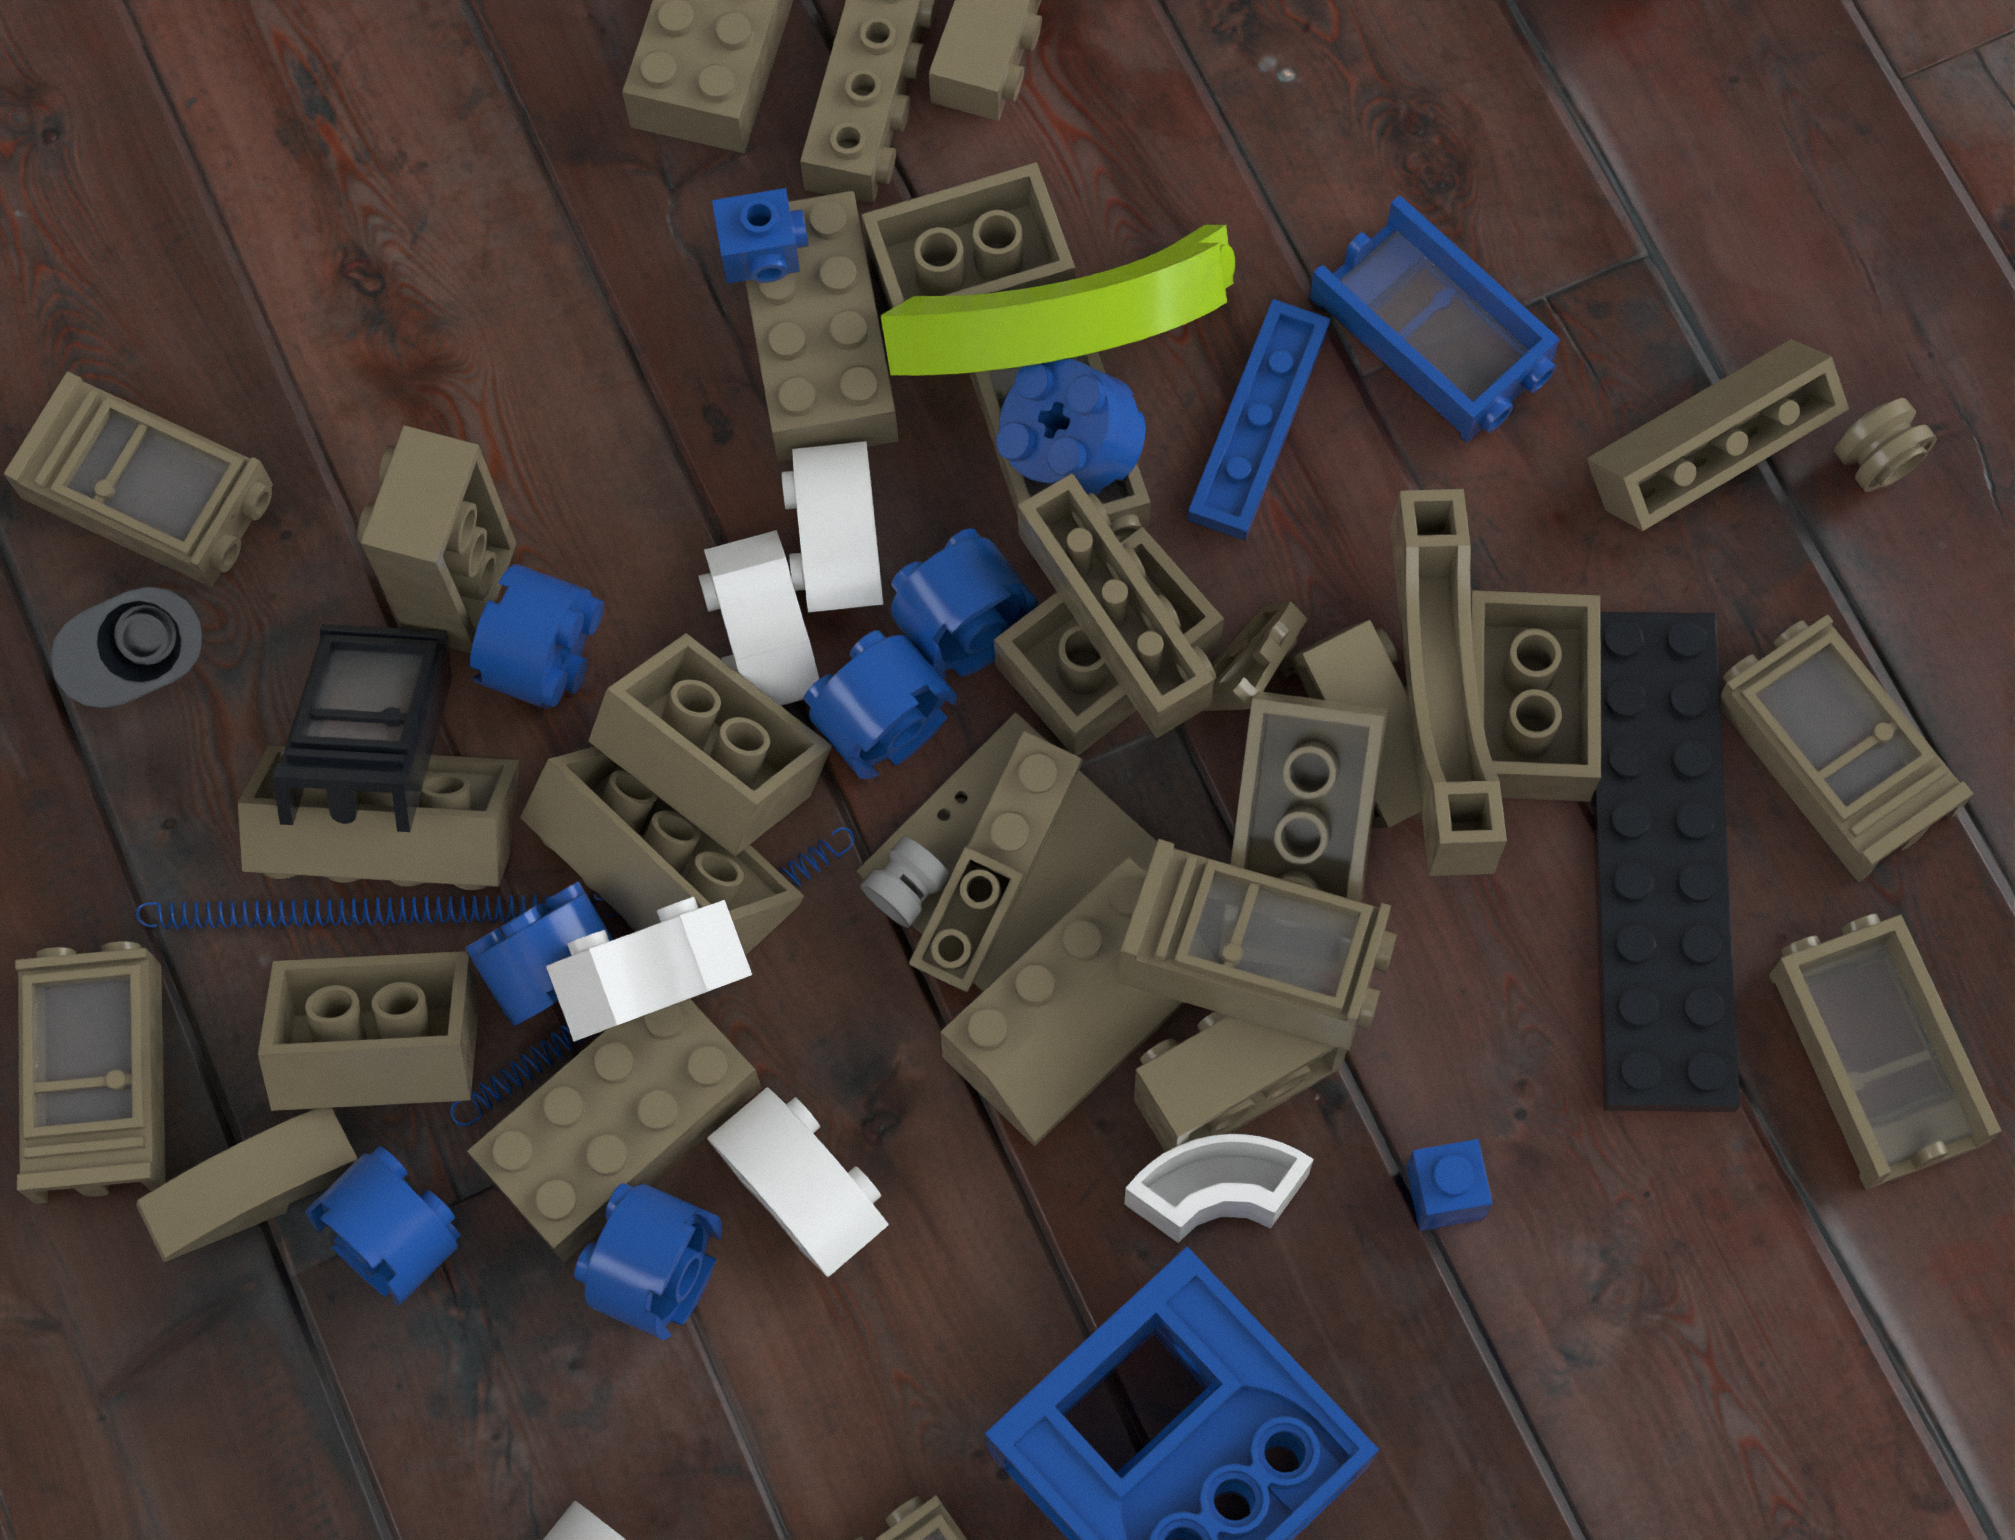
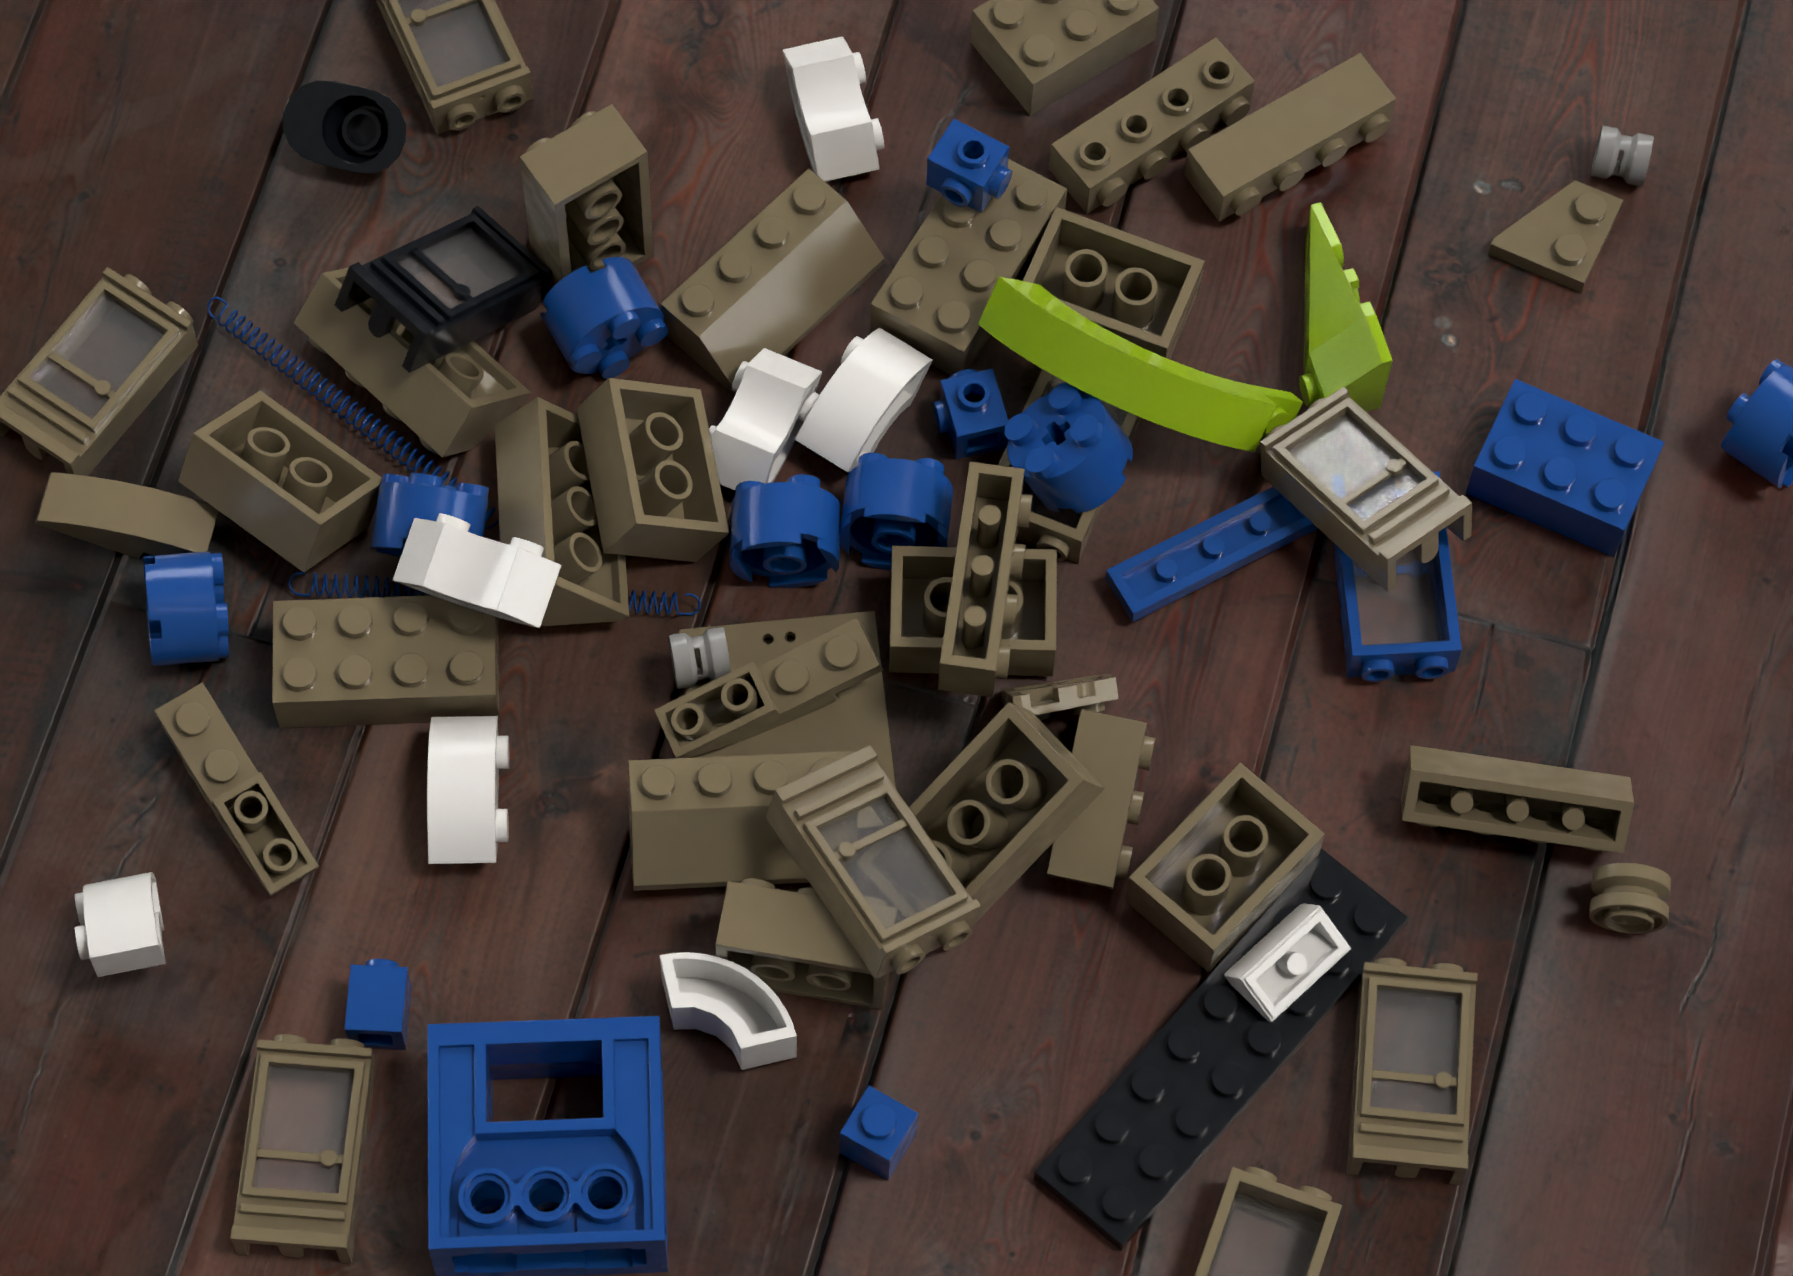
camera: 35 degrees right, 5 degrees down
(567, 282) = (831, 108): none -> white brick
(586, 1358) = (235, 790): none -> dark tan slope
(649, 1259) = (326, 760): blue brick -> none
(655, 483) = (772, 280): none -> dark tan slope
(897, 1446) = (378, 1004): none -> blue brick
(941, 462) = (971, 413): none -> blue brick
(1212, 147) = (1340, 334): none -> lime wedge
(1354, 260) = (1362, 486): none -> dark tan door
(1452, 757) = (1141, 825): dark tan arch -> none
(1494, 109) = (1564, 467): none -> blue brick
(1656, 734) = (1288, 960): none -> white slope

